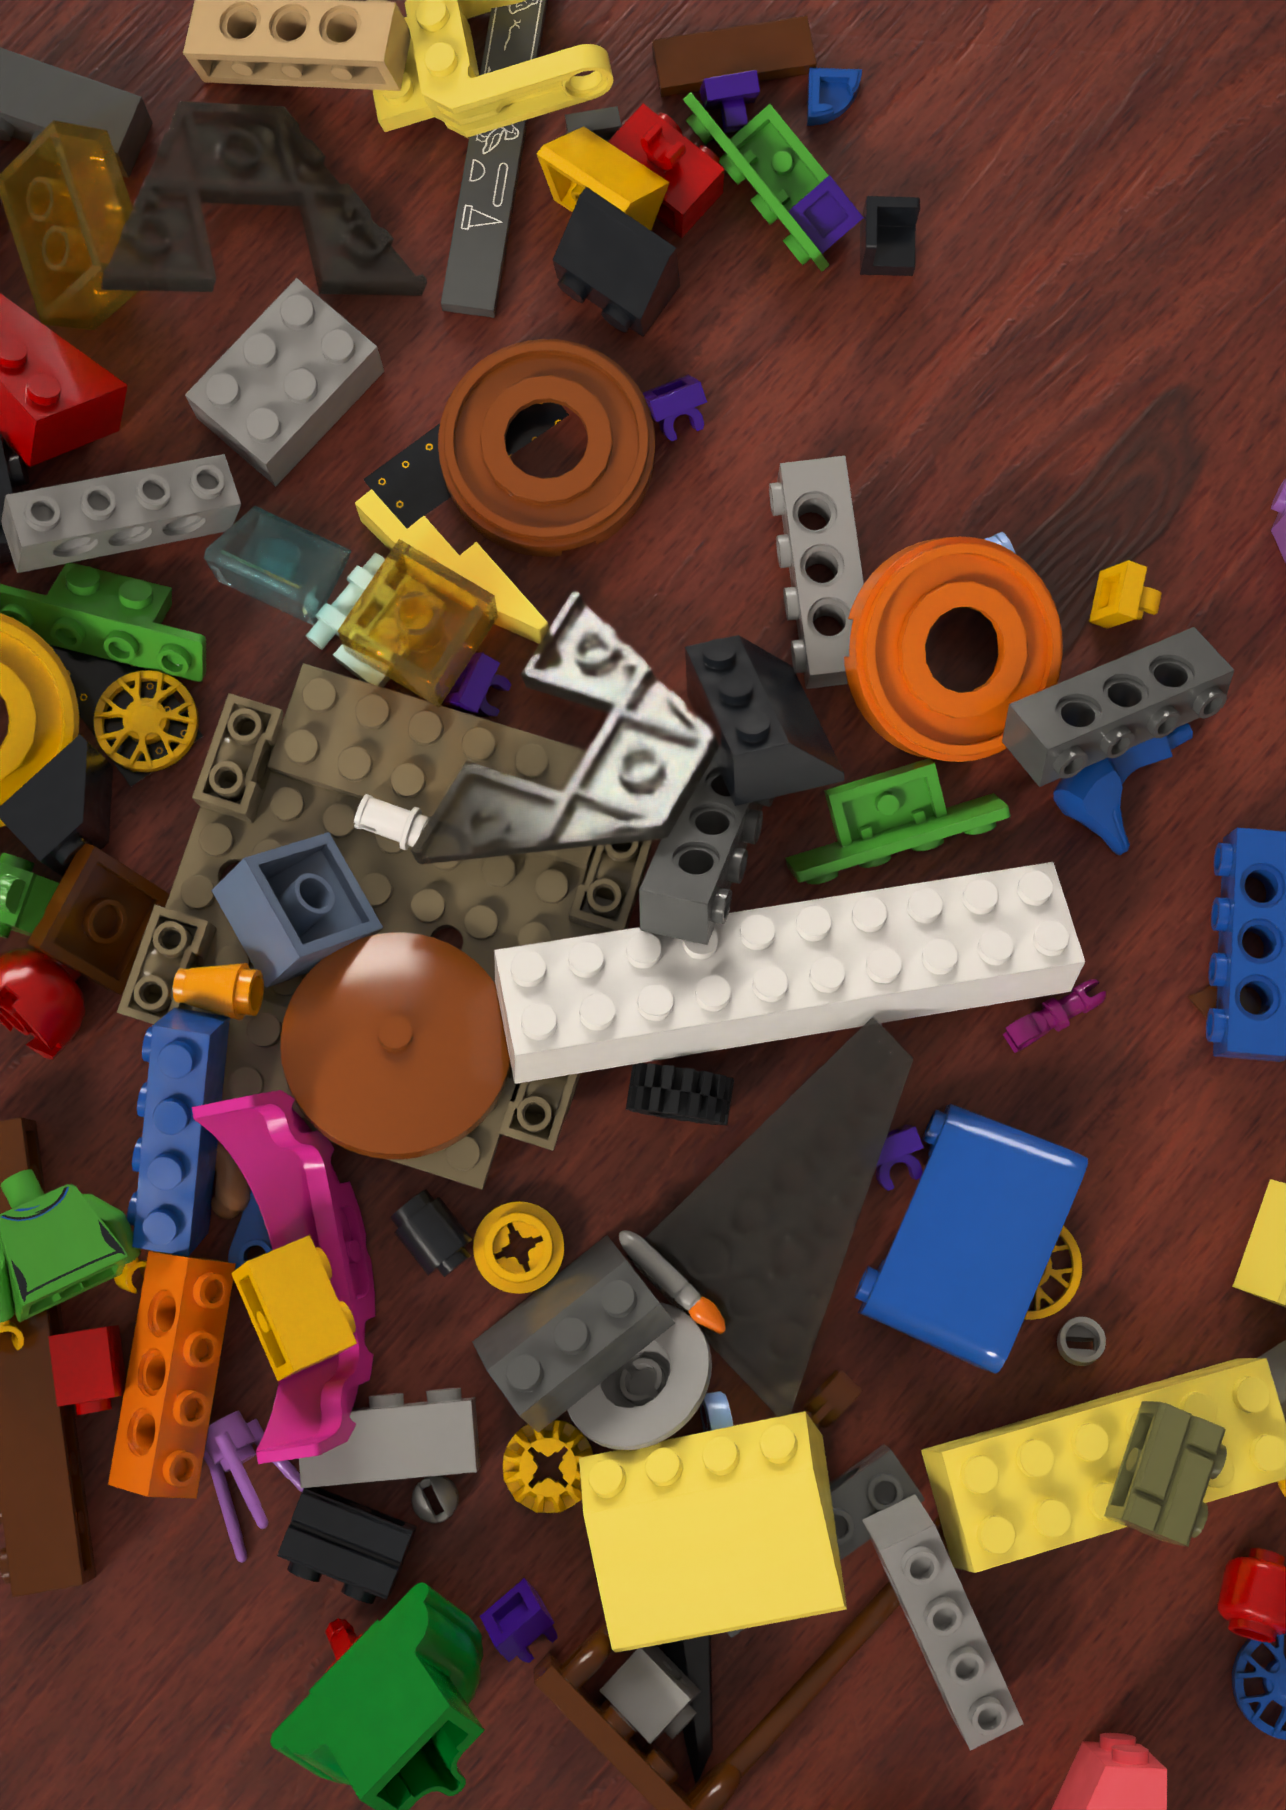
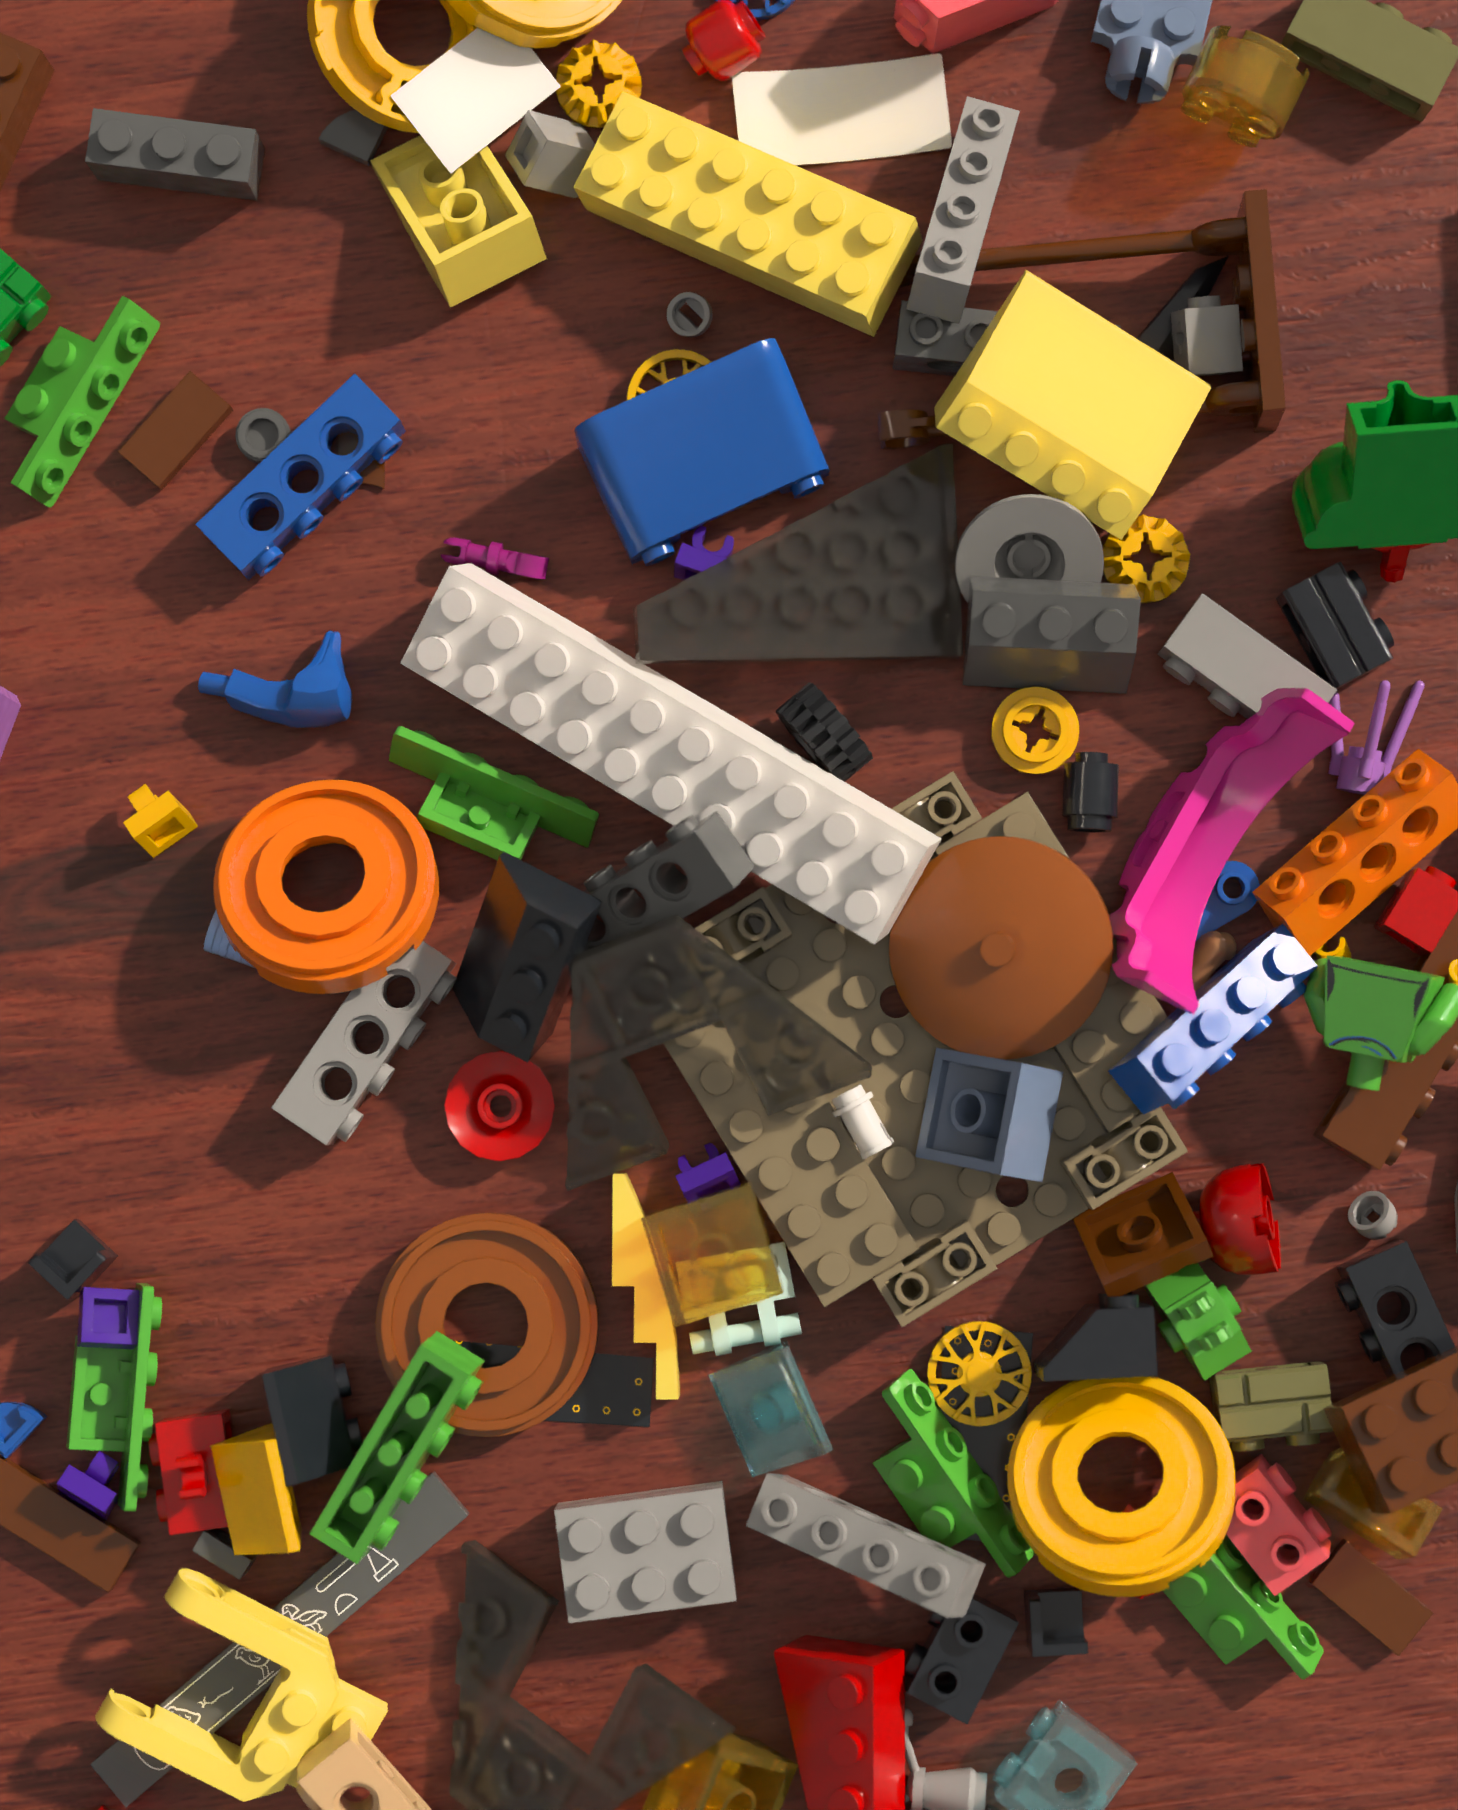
camera: 135 degrees left, 5 degrees up
(221, 989) = (1097, 1096): light orange cone -> none
(295, 1307) = (1236, 816): yellow brick -> none
(445, 1493) = (1236, 602): light grey hinge -> none
(518, 1621) = (1259, 469): dark purple tile -> none
(532, 291) = (398, 1446): none -> bright green brick
(671, 1281) = (943, 569): light grey piece -> none
(673, 581) = (471, 1114): none -> red dish
(675, 399) = (356, 1273): dark purple tile -> none
(715, 1411) = (996, 486): light blue tile -> none
(1108, 1628) = (845, 110): none -> white sticker
(1117, 706) = (167, 728): dark grey brick -> none
(1167, 1473) = (723, 166): olive brick -> none

